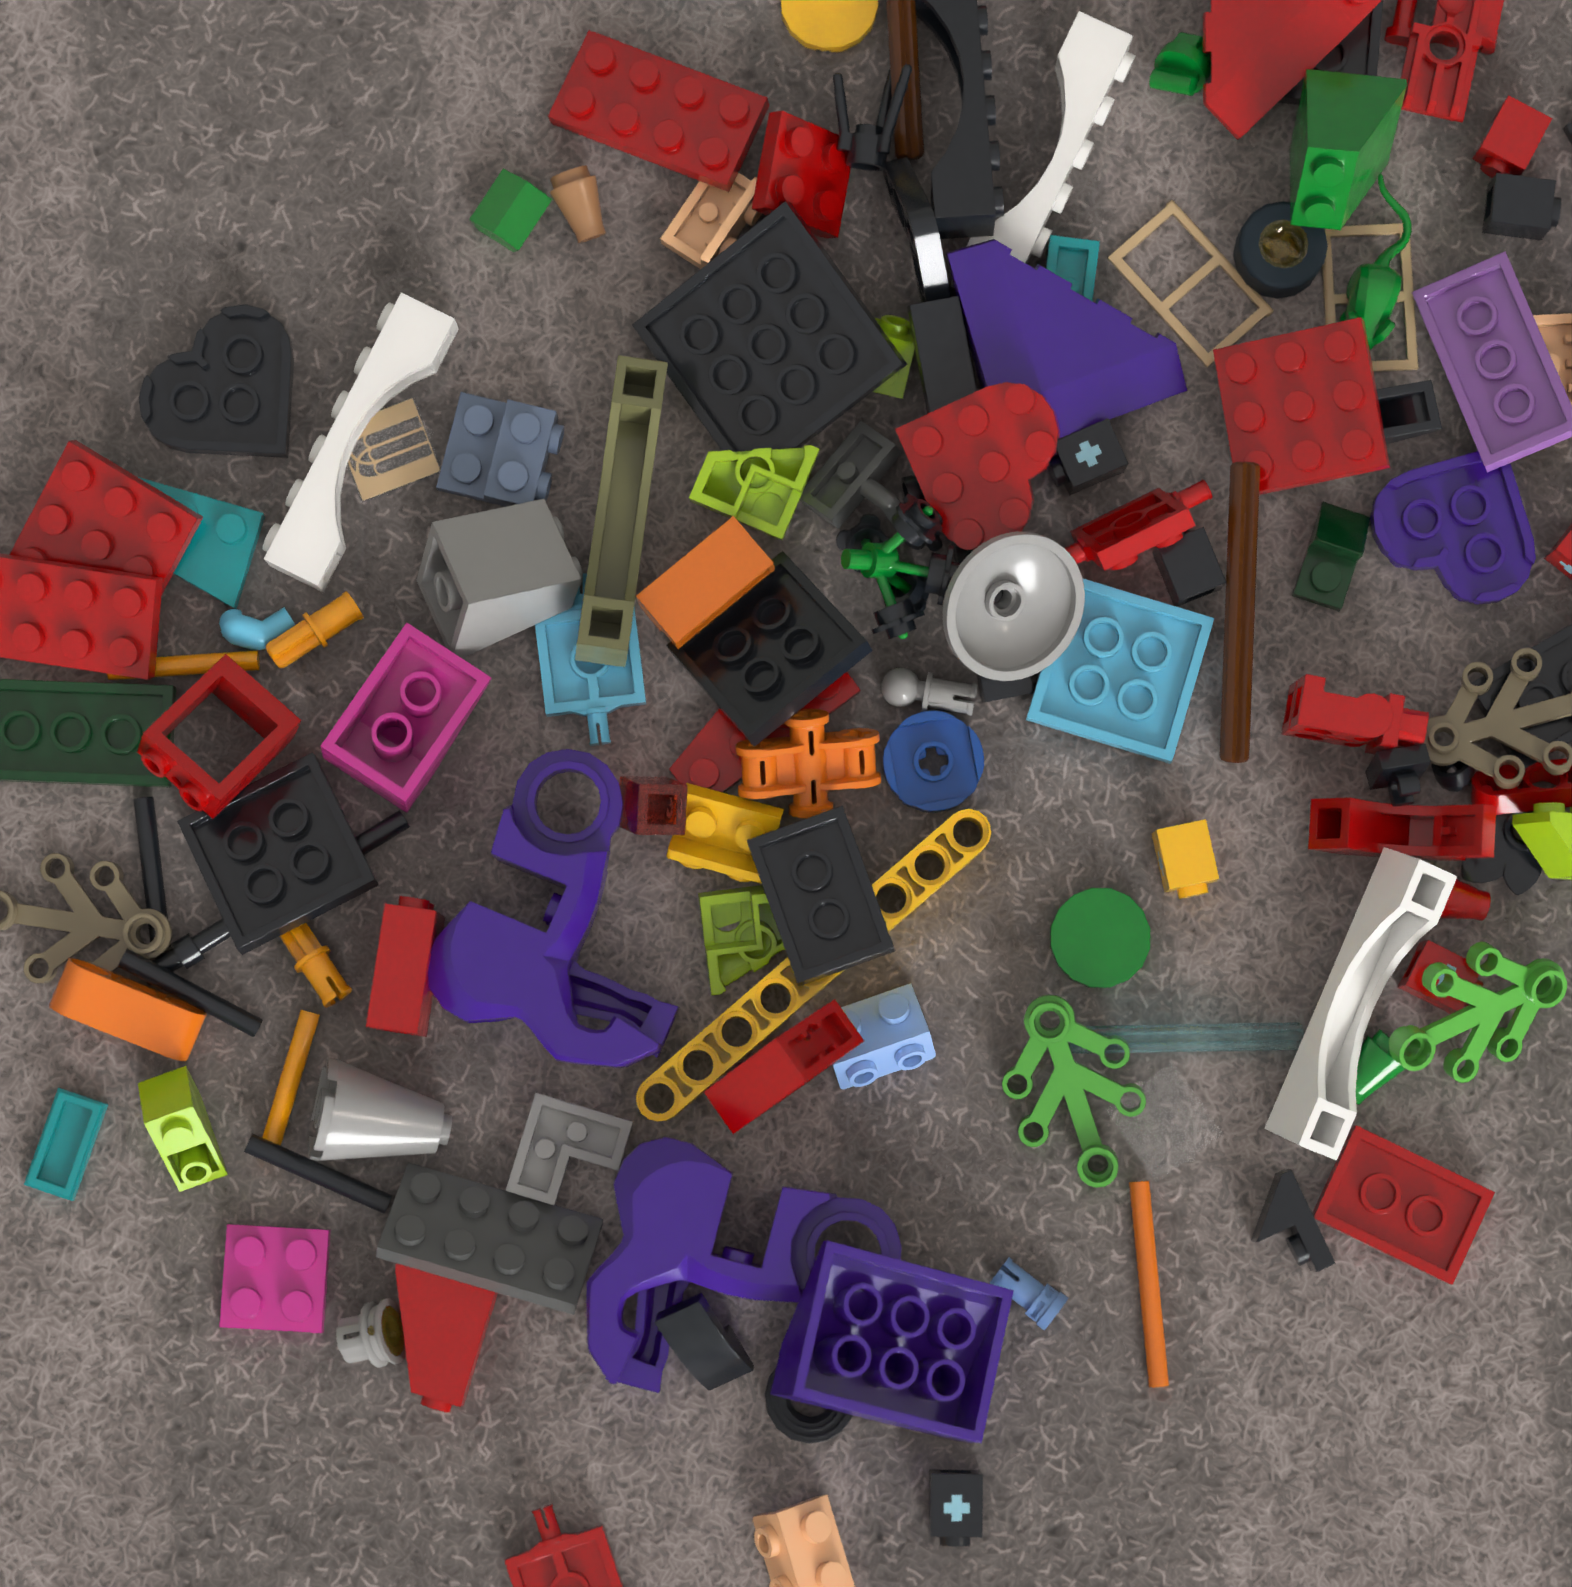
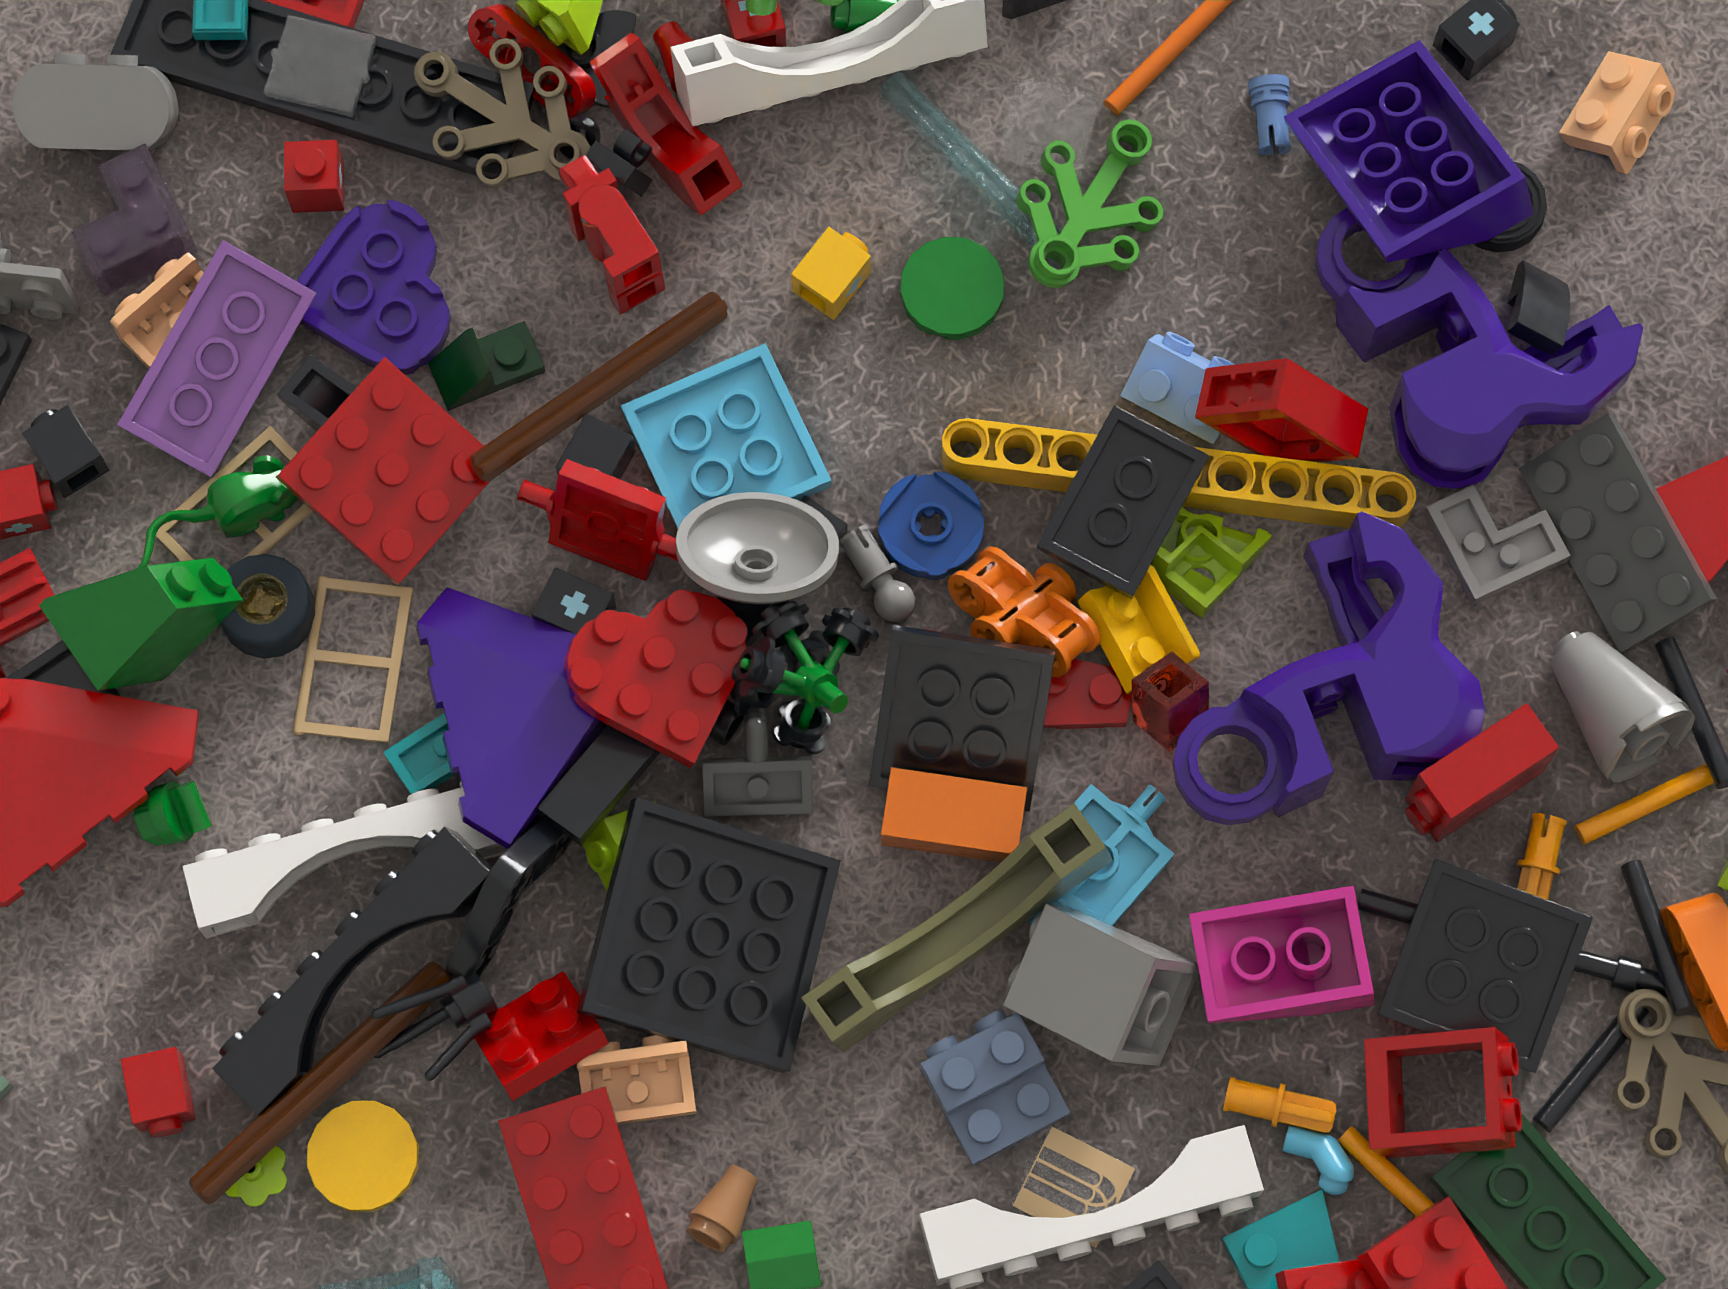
camera: 130 degrees left, 10 degrees down
(755, 485) = (837, 846): lime slope -> none

